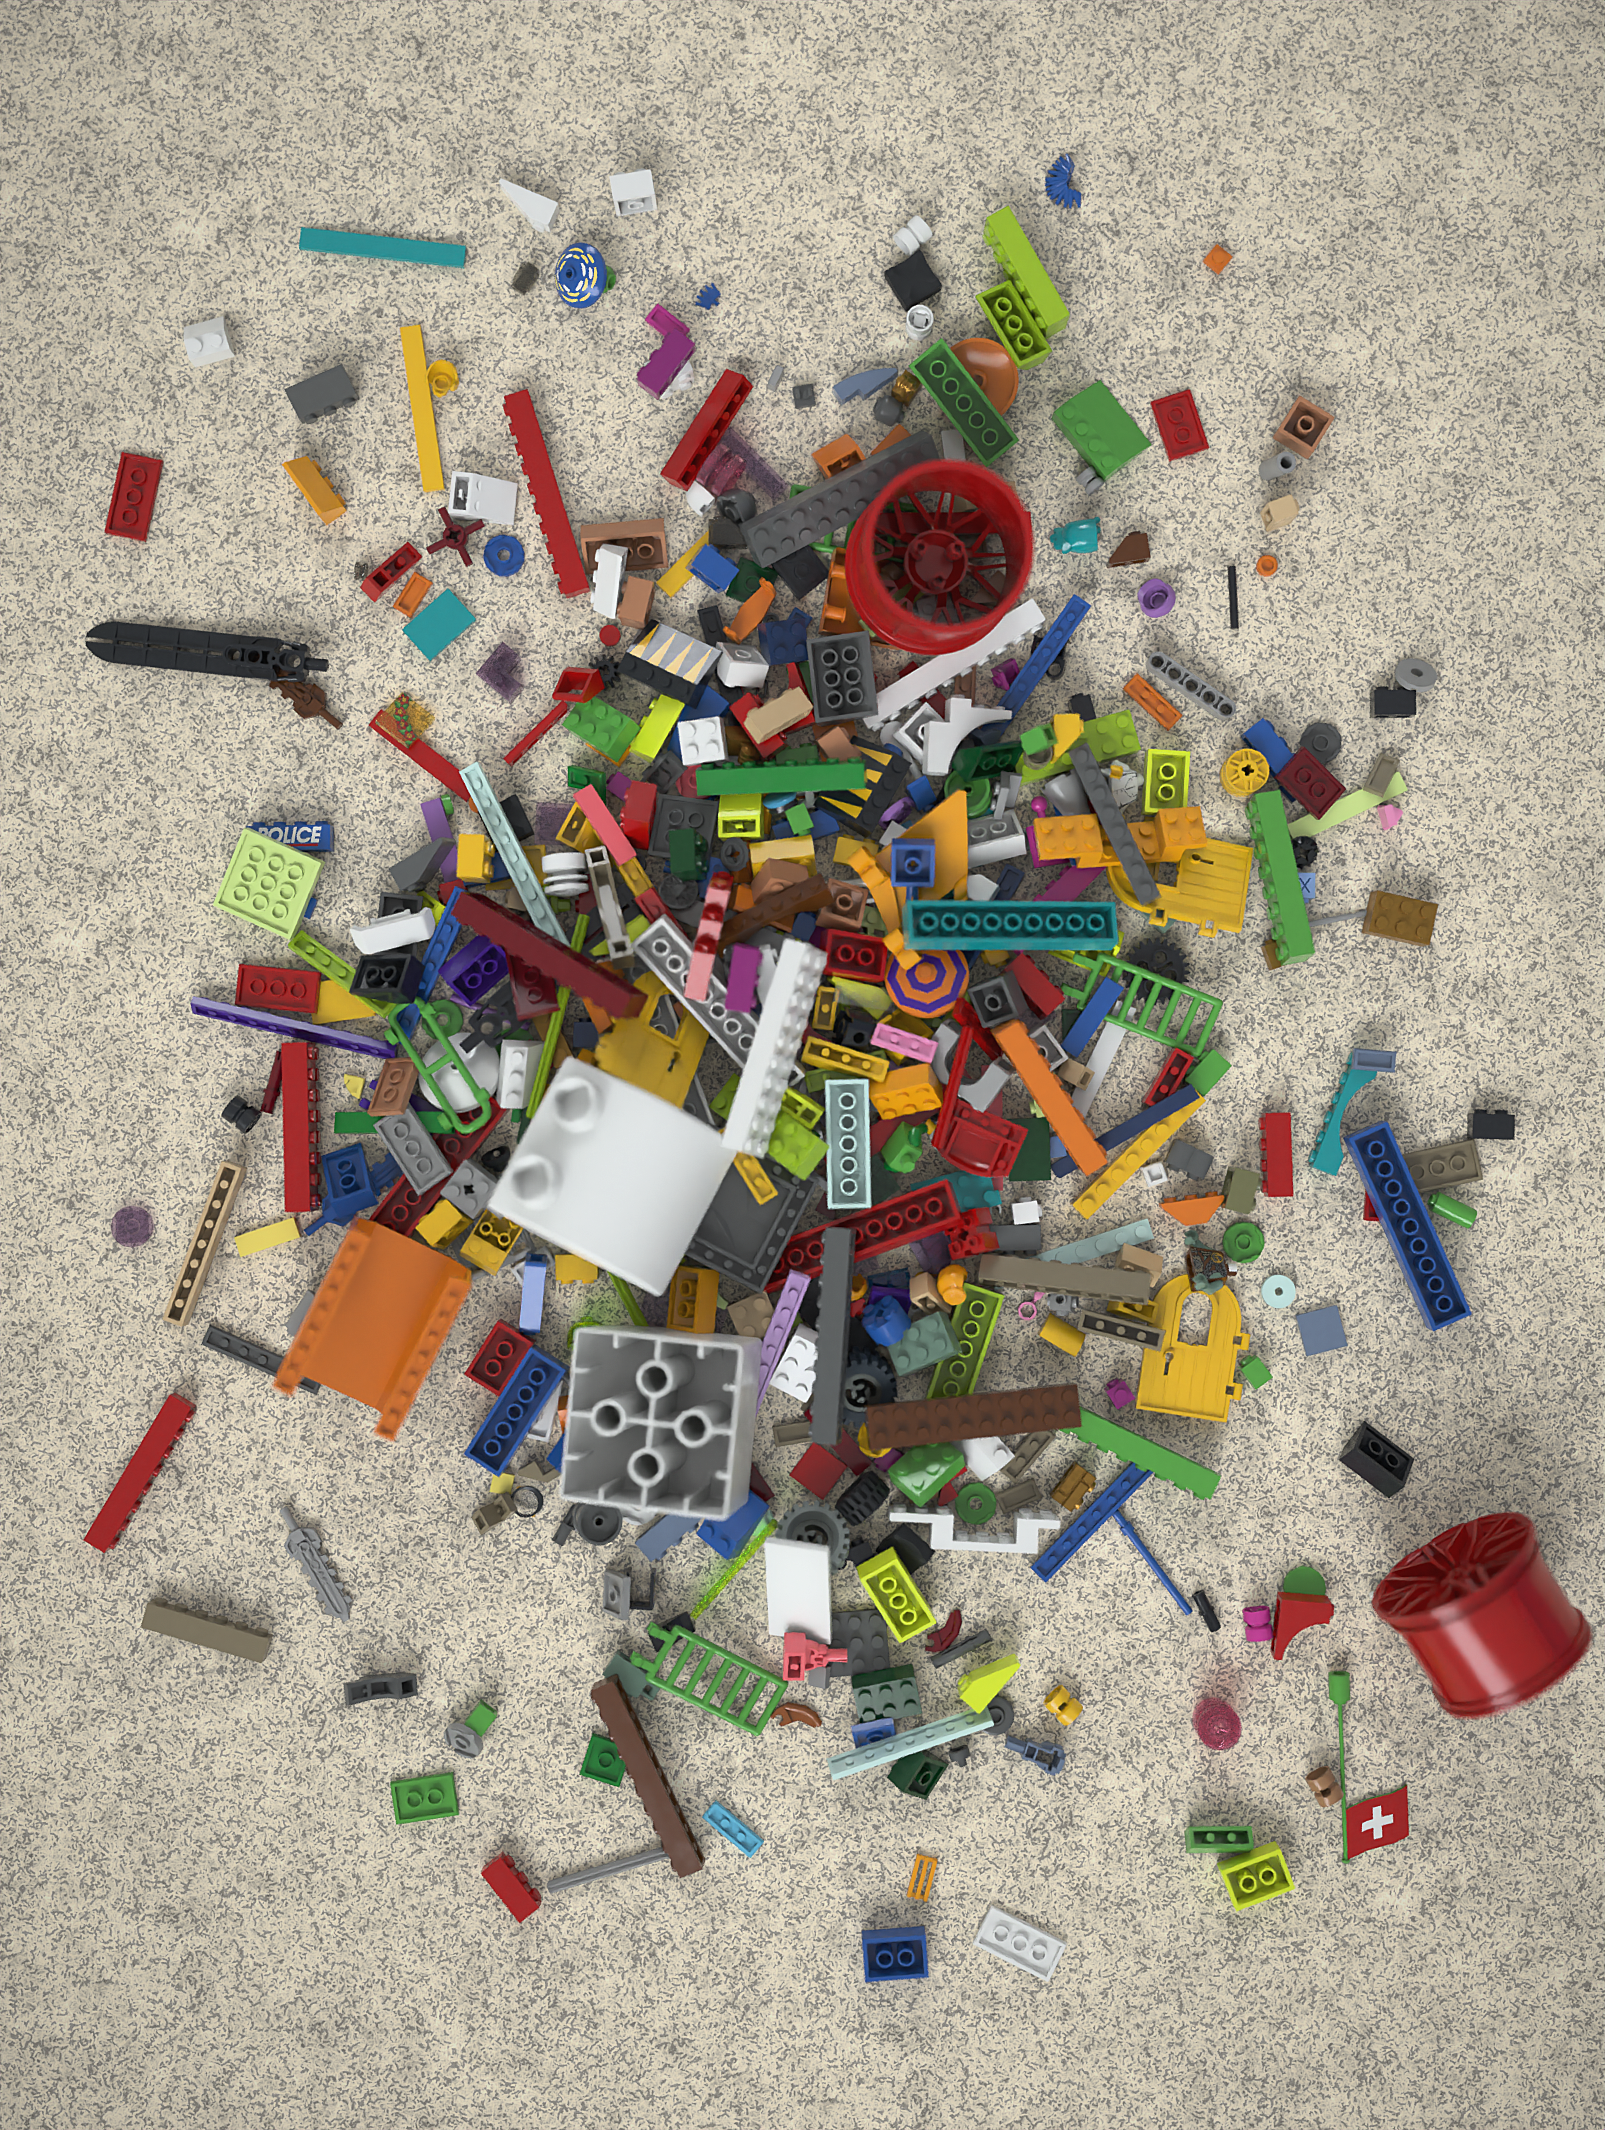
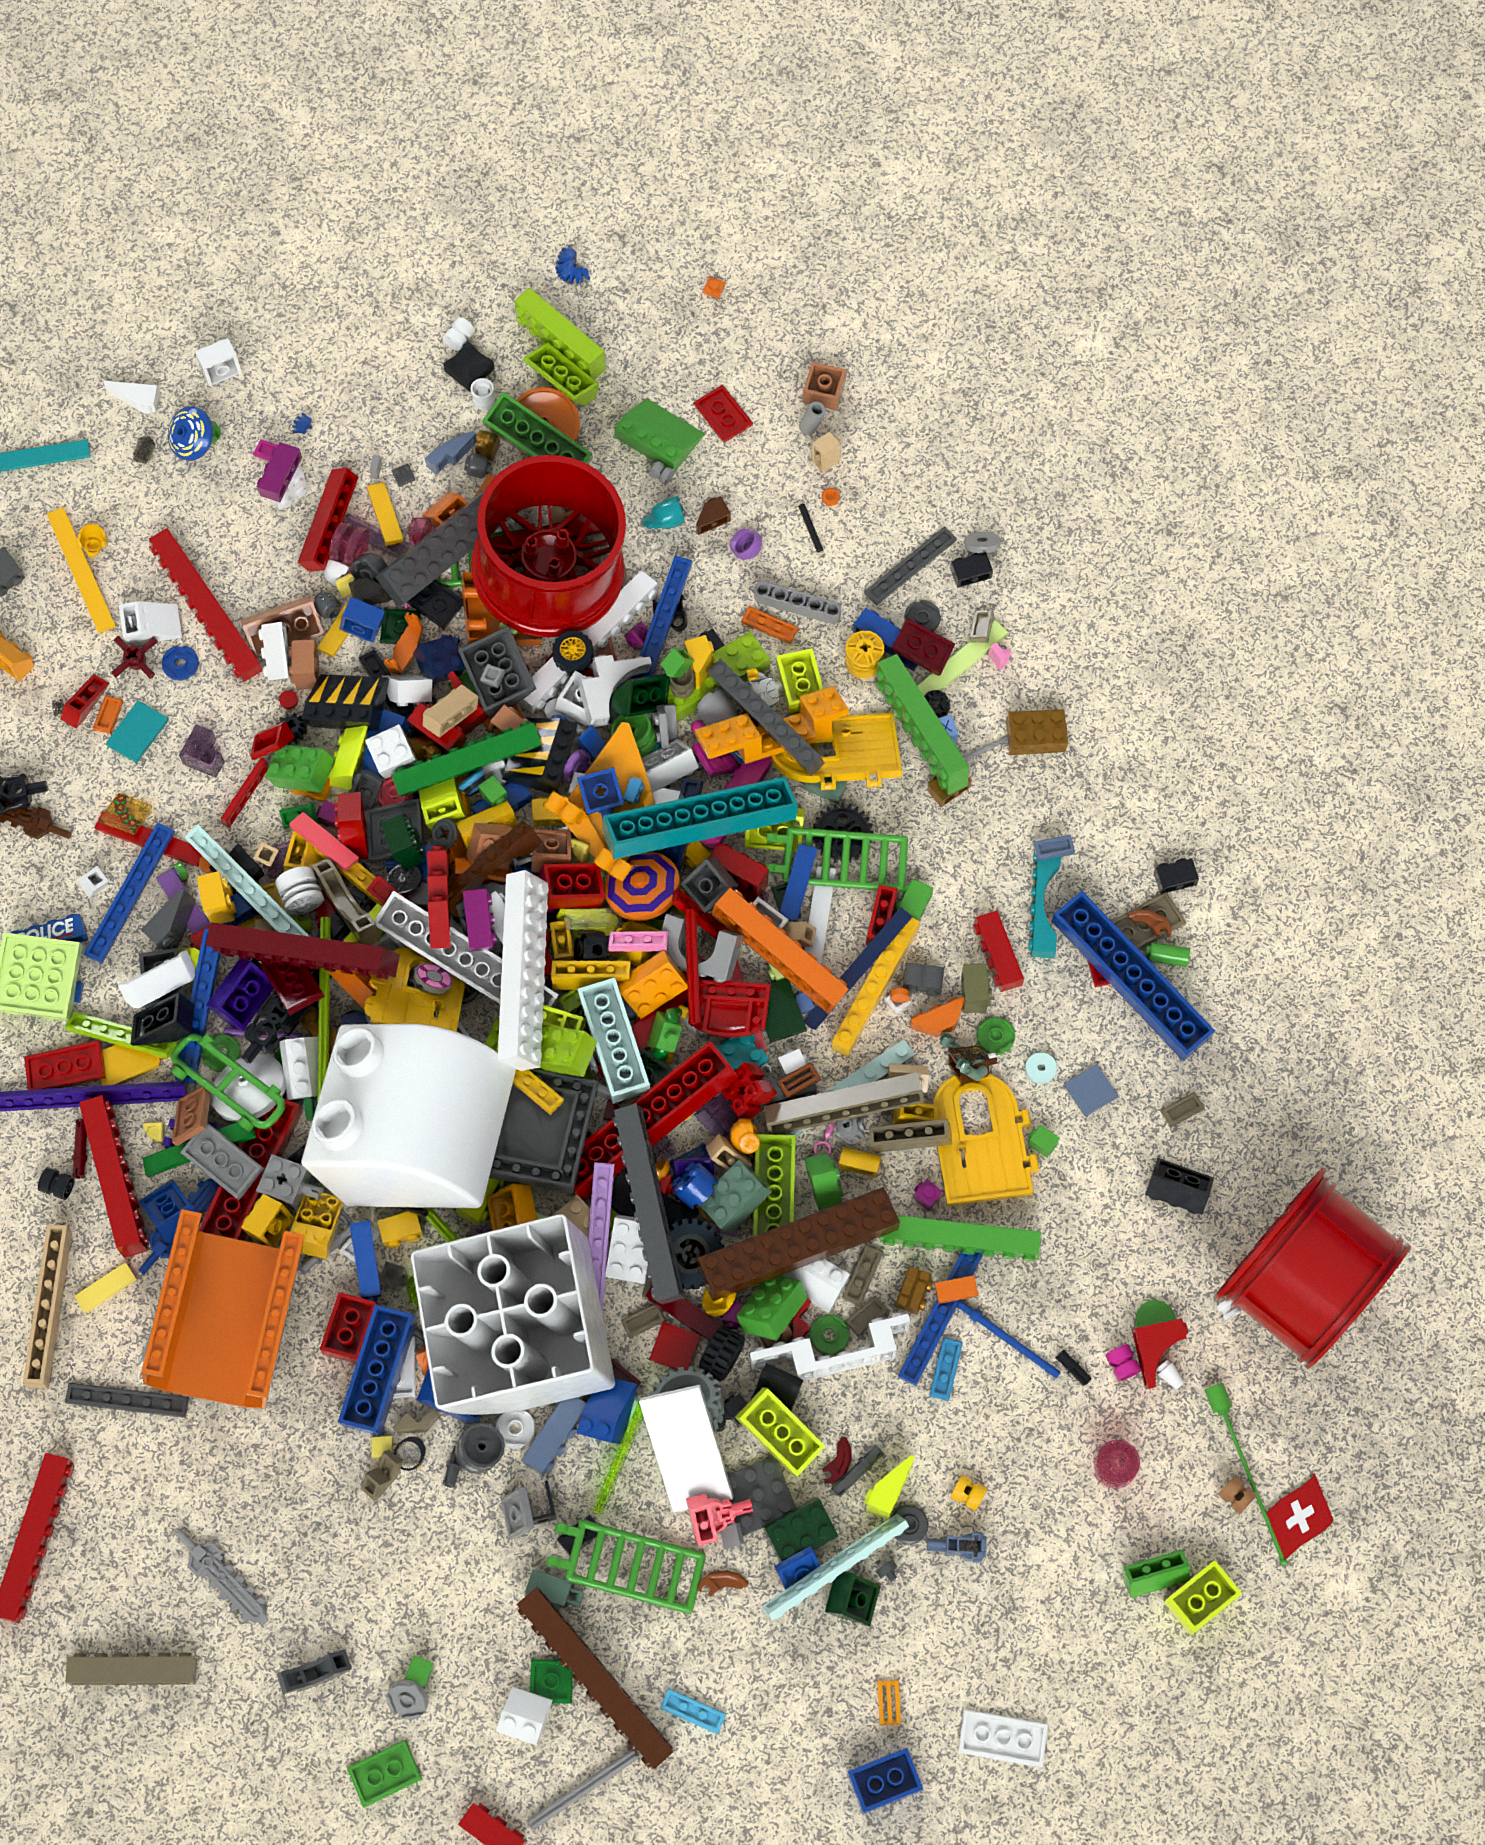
camera: 15 degrees left, 20 degrees down
(352, 791) = (93, 882): none -> white brick
(388, 813) = (129, 893): none -> blue plate
(540, 816) = (266, 854): none -> tan brick
(557, 1317) = (393, 1276): none -> clear smoke brick
(570, 1789) = (524, 1716): none -> white slope
(678, 1022) = (433, 978): none -> tile
(679, 535) = (327, 605): none -> dark grey head
(703, 515) = (343, 586): none -> light yellow tile
(771, 440) = (385, 514): none -> yellow tile
(803, 475) = (418, 529): none -> clear pink brick
(835, 685) = (492, 676): none -> light grey tile
(873, 913) = (580, 849): none -> light yellow tile
(930, 679) = (573, 652): none -> black wheel
(948, 870) = (633, 791): none -> dark azure piece
(1008, 1241) = (784, 1089): none -> dark orange tile
(1019, 1347) = (823, 1178): none -> bright green brick
(1080, 1573) = (946, 1369): none -> dark azure tile
(1116, 1501) = (956, 1289): none -> orange tile
(1159, 1173) = (900, 995): none -> orange tile
(1300, 1648) = (1169, 1373): none -> white cone
(1328, 676) = (910, 566): none -> dark grey tile
(1407, 1379) = (1182, 1109): none -> dark tan tile
(1450, 1168) = (1152, 919): none -> dark orange piece

